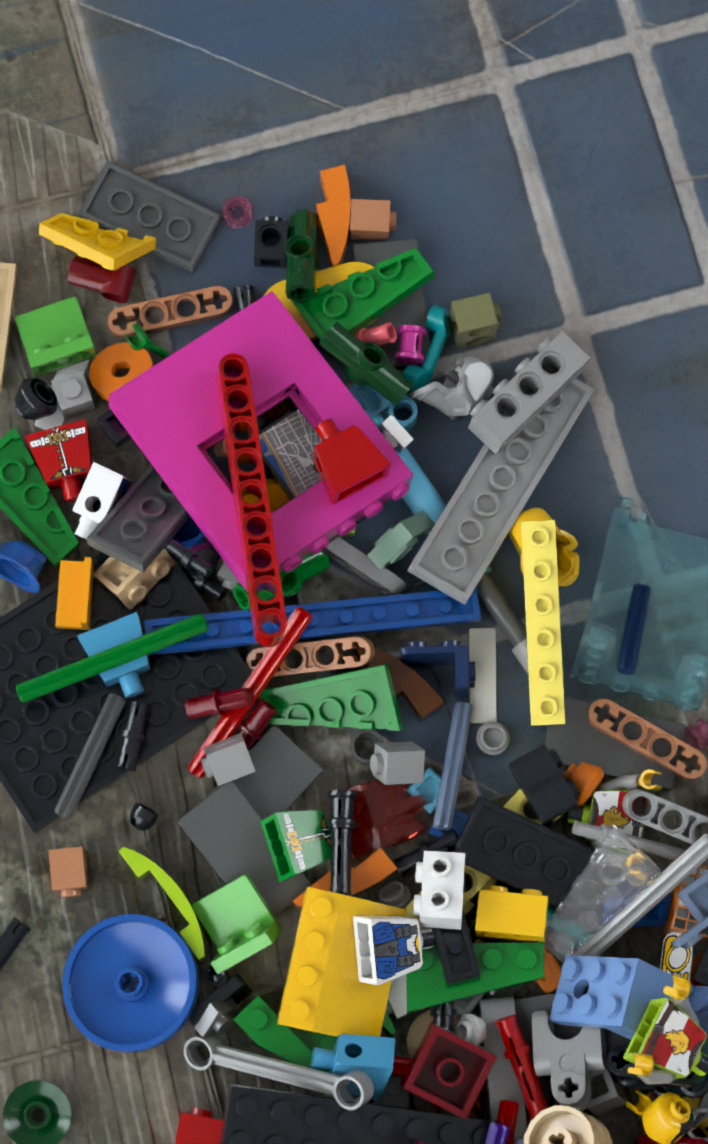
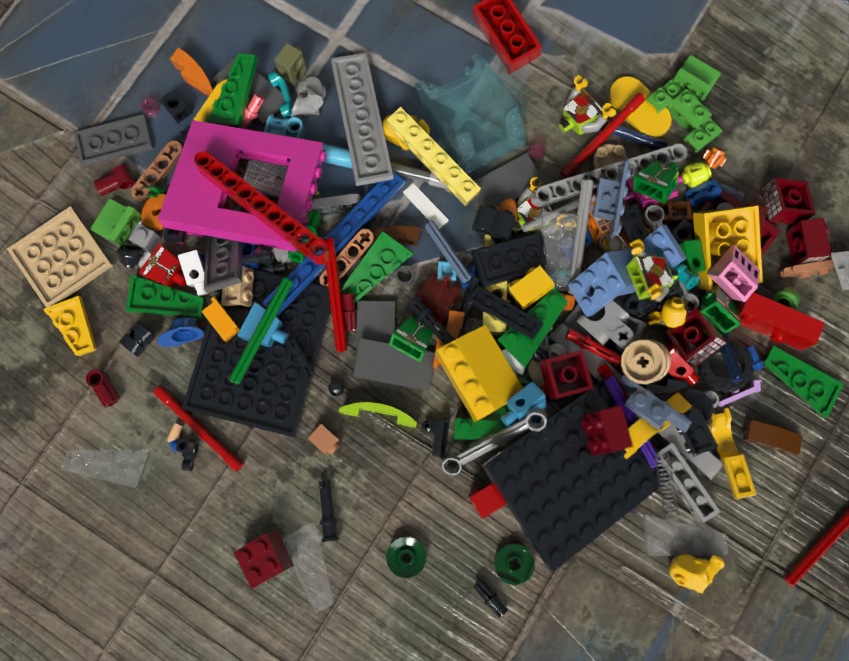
camera: 40 degrees left, 0 degrees up
(90, 756) = (289, 382): dark grey axle -> none
(105, 247) = (91, 169): yellow wing -> none
(130, 983) = (395, 463): blue dish -> none
(217, 1018) = (446, 444): flat silver plate -> none
(218, 702) = (325, 310): dark red axle -> none
(227, 760) = (351, 330): light grey brick -> none
(237, 922) = (417, 395): bracket -> none
(302, 256) = (193, 98): dark green piece -> none
(347, 460) = (289, 157): red torso -> none
(366, 363) = (260, 116): dark green piece -> none
(371, 220) = (210, 62): nougat brick -> none
(389, 947) = (494, 345): torso -> none
(395, 433) = (299, 132): white plate -> none
(398, 763) = (424, 269): light grey brick -> none
(400, 539) = (341, 177): sand green brick -> none
(410, 344) = (272, 96): dark pink bush -> none
(441, 890) = (493, 302): white brick -> none
(449, 653) = (406, 205): dark blue bracket -> none
(492, 738) = (453, 227): light grey plate -> none
(499, 430) = (340, 72): light grey brick -> none
(634, 629) = (466, 124): dark blue axle -> none
(644, 744) = (516, 168): nougat beam -> none

